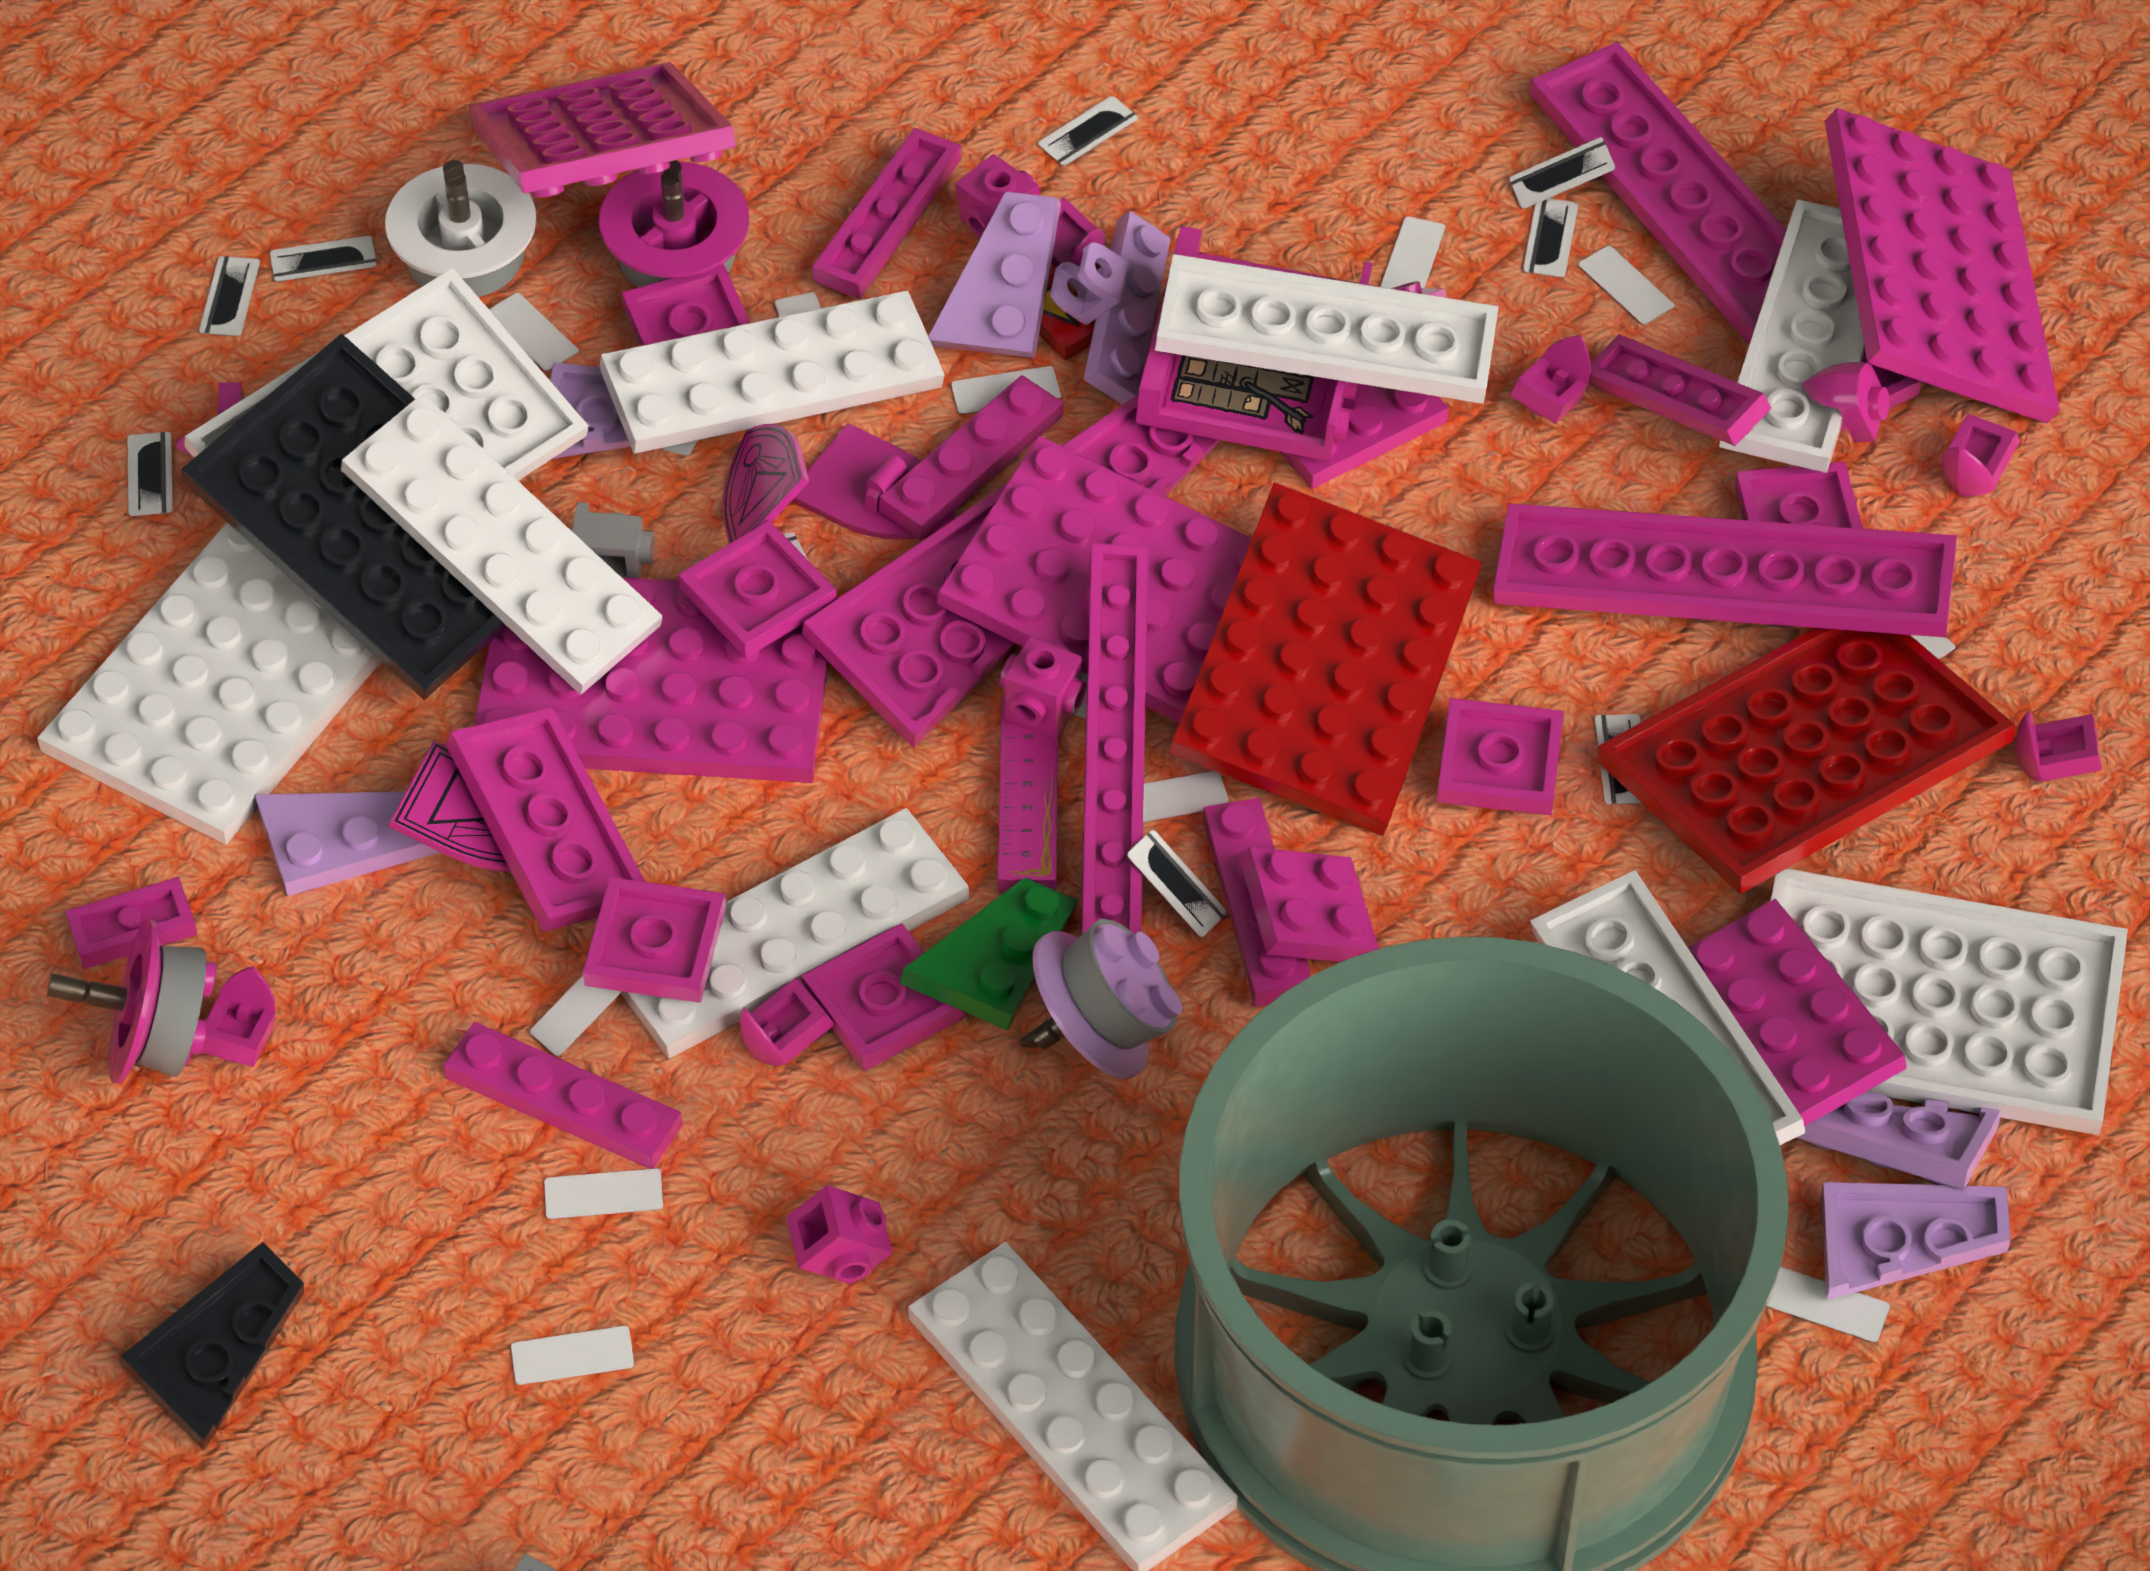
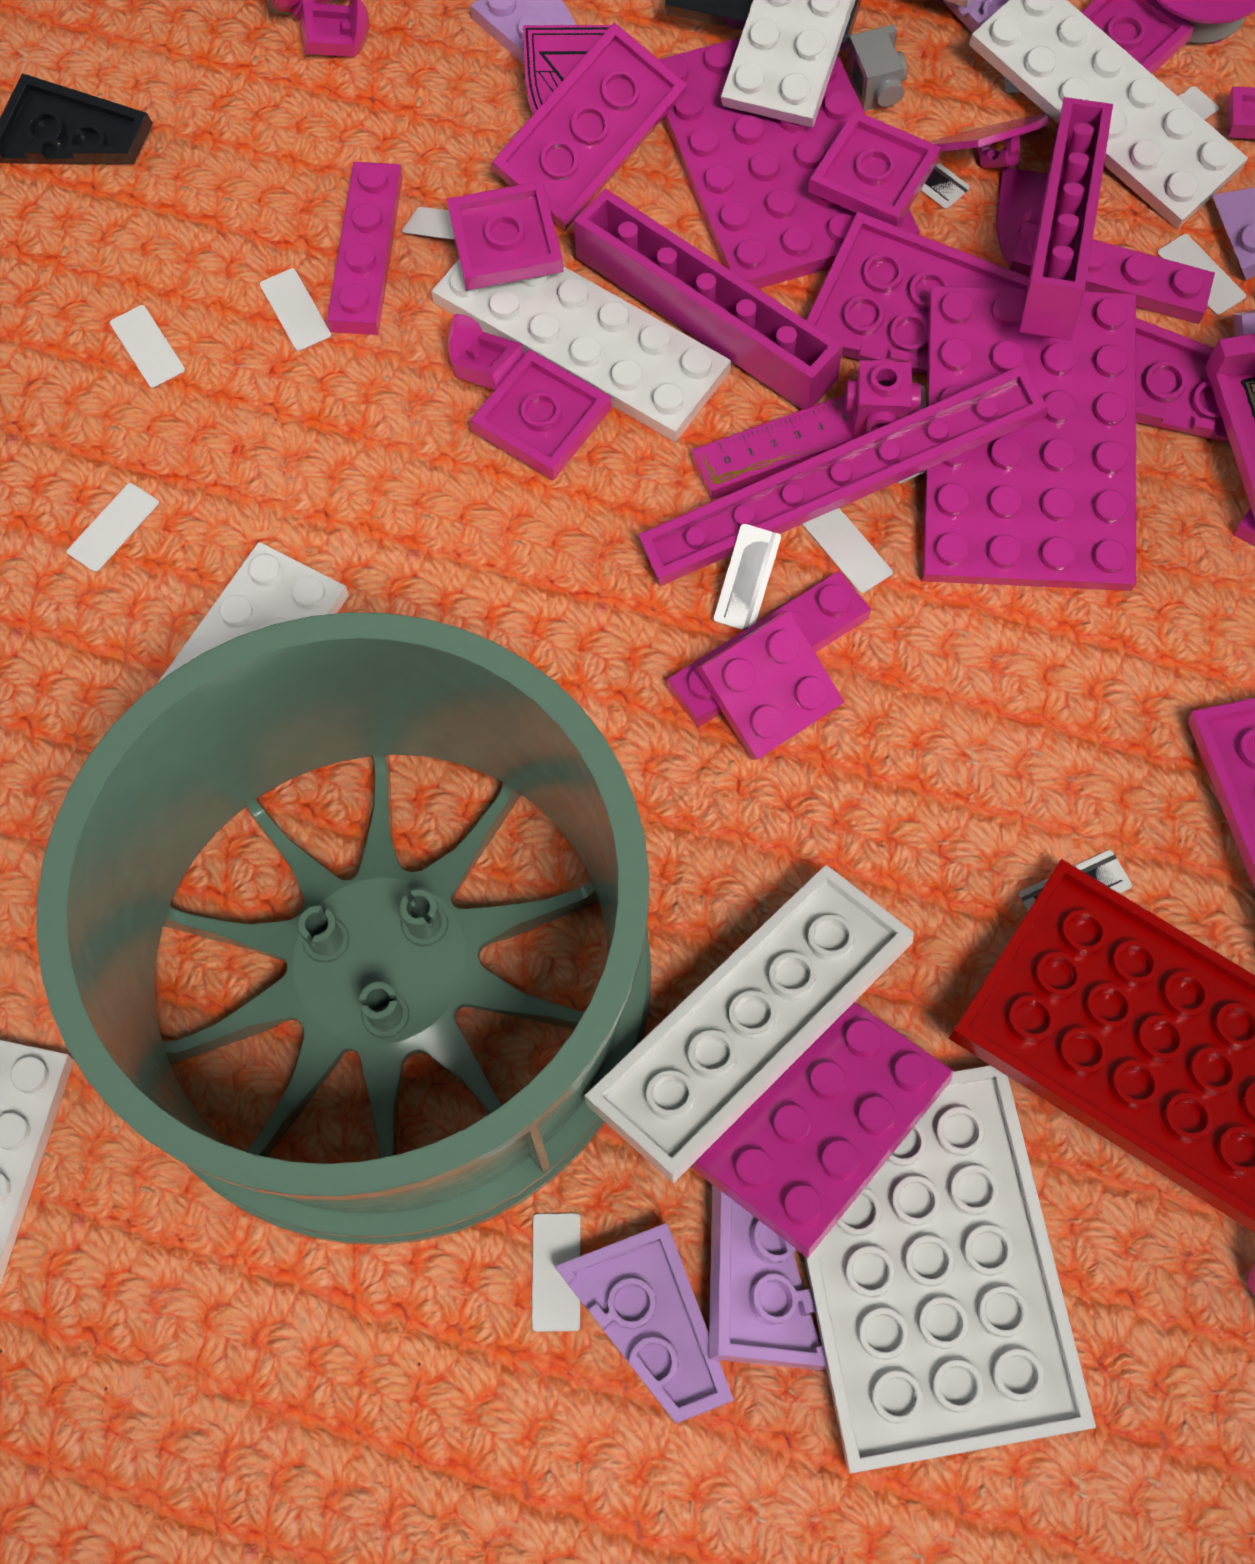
camera: 70 degrees right, 15 degrees up
(802, 1455) = (112, 527): none -> white sticker
(832, 794) = (707, 300): none -> dark pink brick
(839, 1235) = (290, 450): dark pink brick -> none
(936, 443) = (1067, 220): none -> dark pink brick
(989, 958) = (612, 474): green wing -> none
(1103, 996) = (578, 554): lavender piece -> none
(1326, 659) = (1042, 604): red plate -> none
(1500, 756) = (1013, 783): dark pink plate -> none

